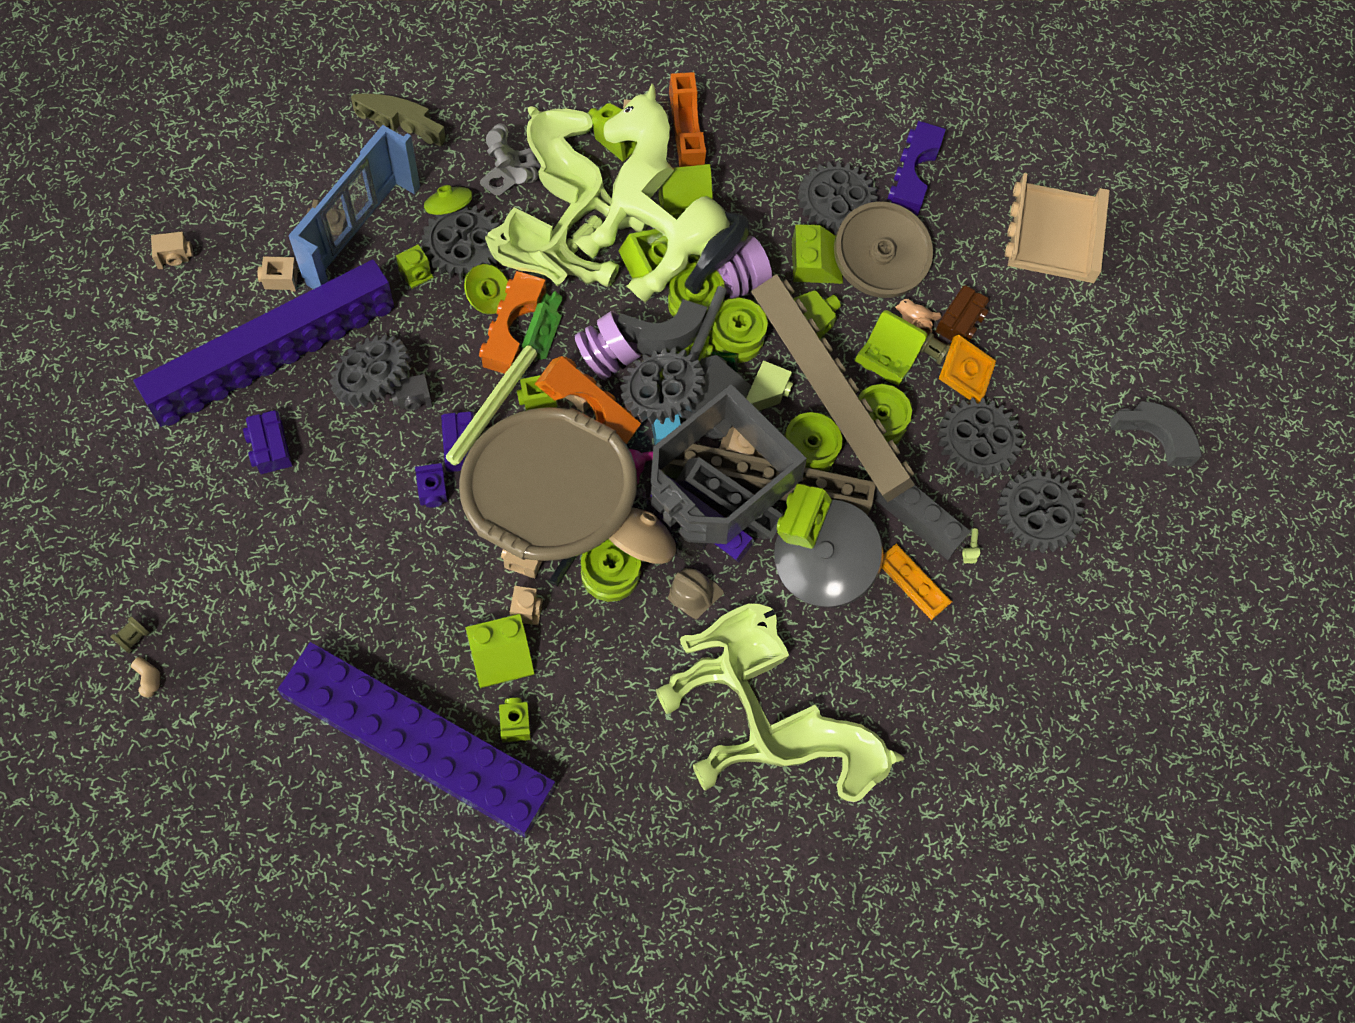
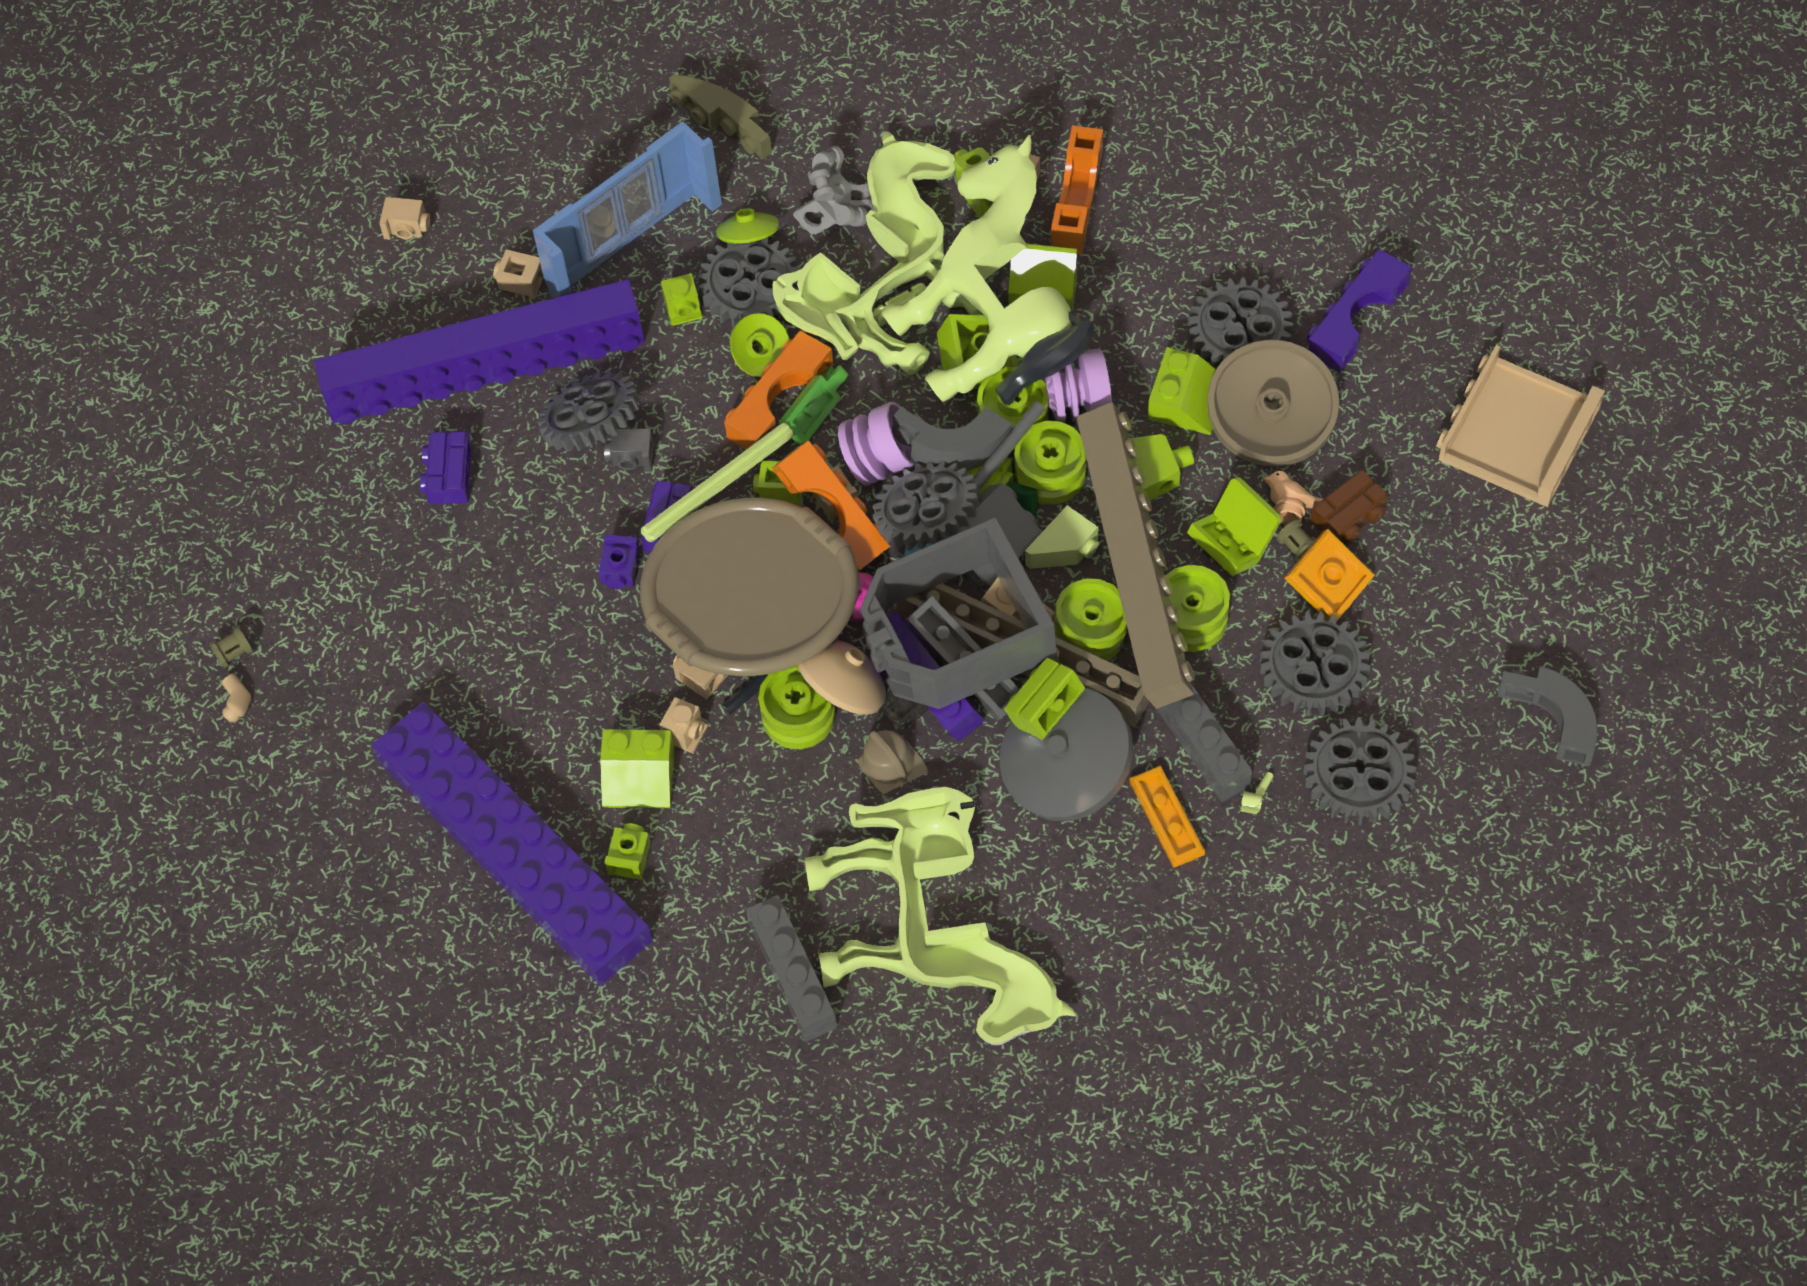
camera: 30 degrees right, 5 degrees down
(676, 782) = (791, 968): none -> dark grey brick

